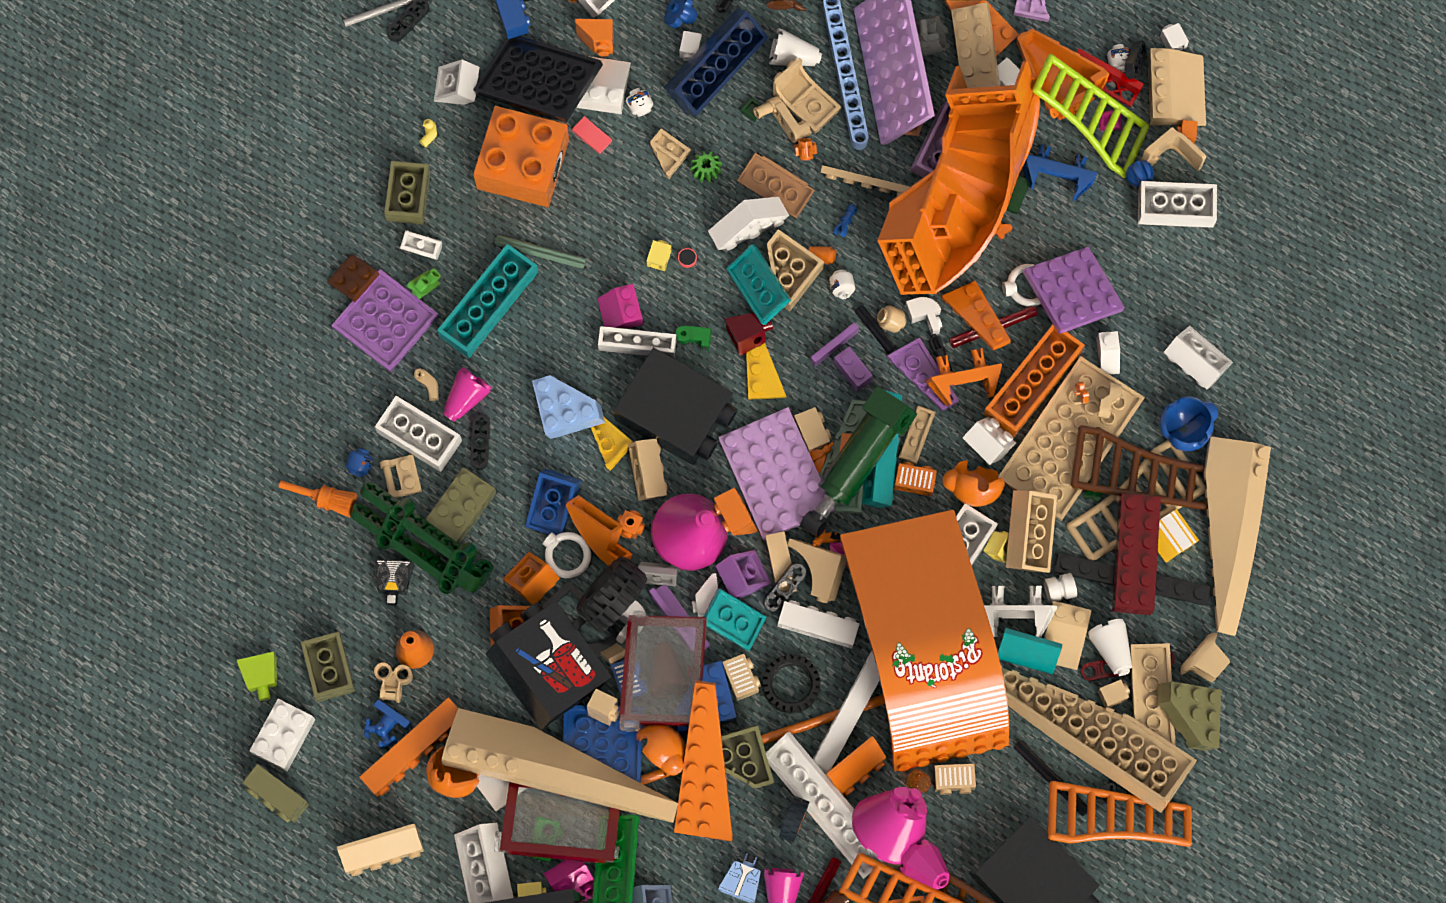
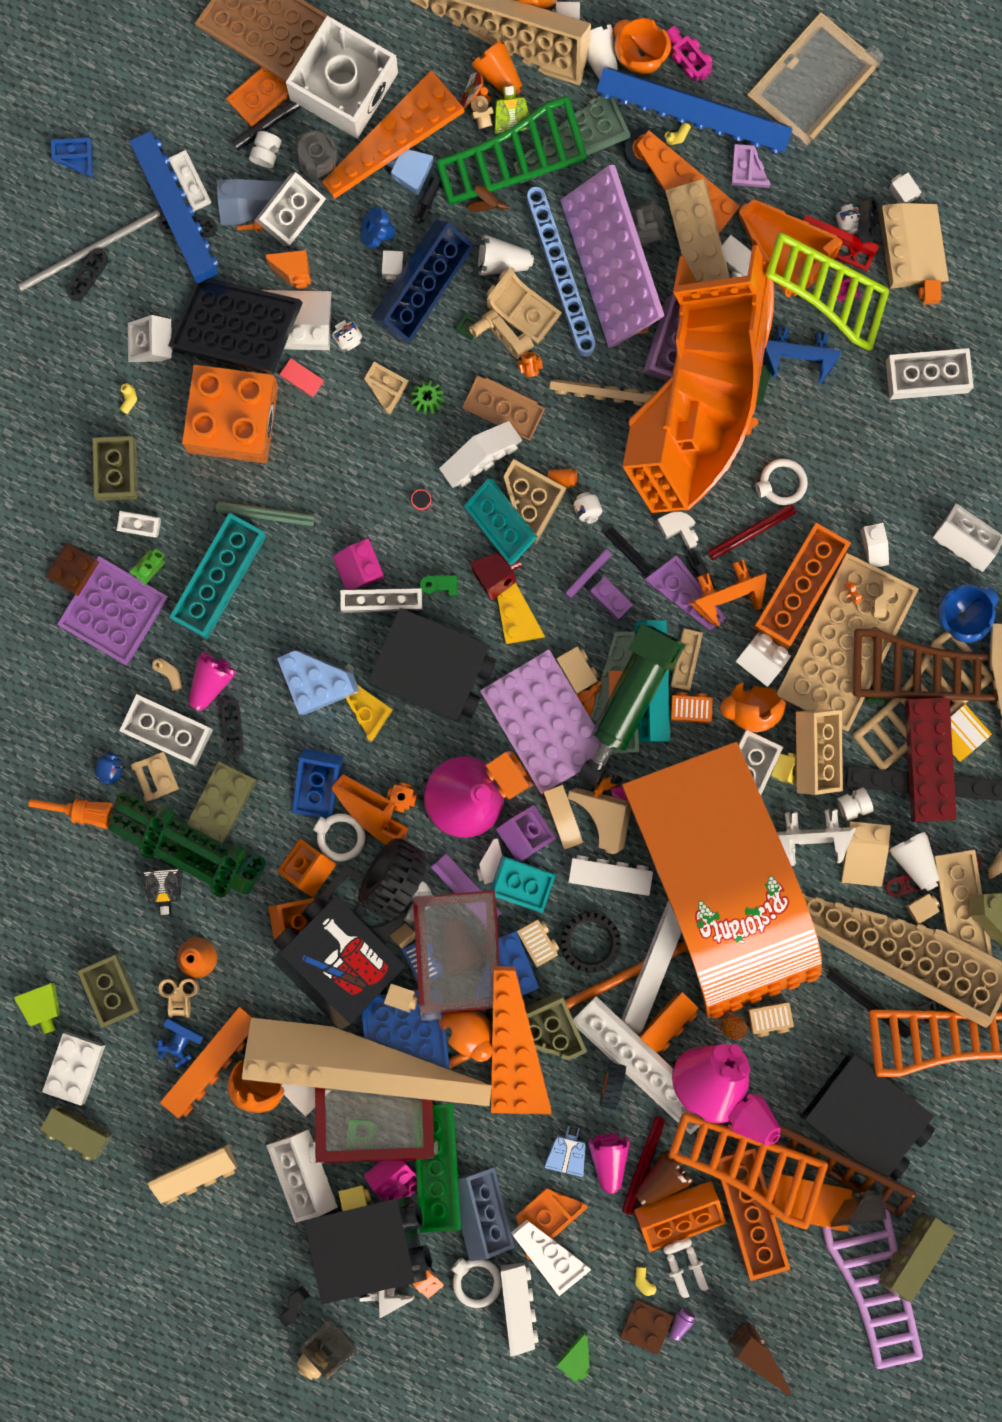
camera: 10 degrees left, 10 degrees up
(647, 469) = (411, 737): tan brick -> none
(659, 255) = (391, 501): light yellow brick -> none
(659, 573) = (437, 844): light grey panel -> none
(771, 594) = (558, 851): black beam -> none
(845, 220) = (582, 436): blue piece -> none
(891, 319) = (644, 538): tan head -> none
(976, 311) = (733, 520): orange wing -> none
(1029, 651) = (831, 876): teal tile -> none
(1073, 290) = (831, 483): medium lavender plate -> none
(1139, 172) = (886, 344): blue piece -> none
(1177, 142) = (926, 308): tan piece -> none

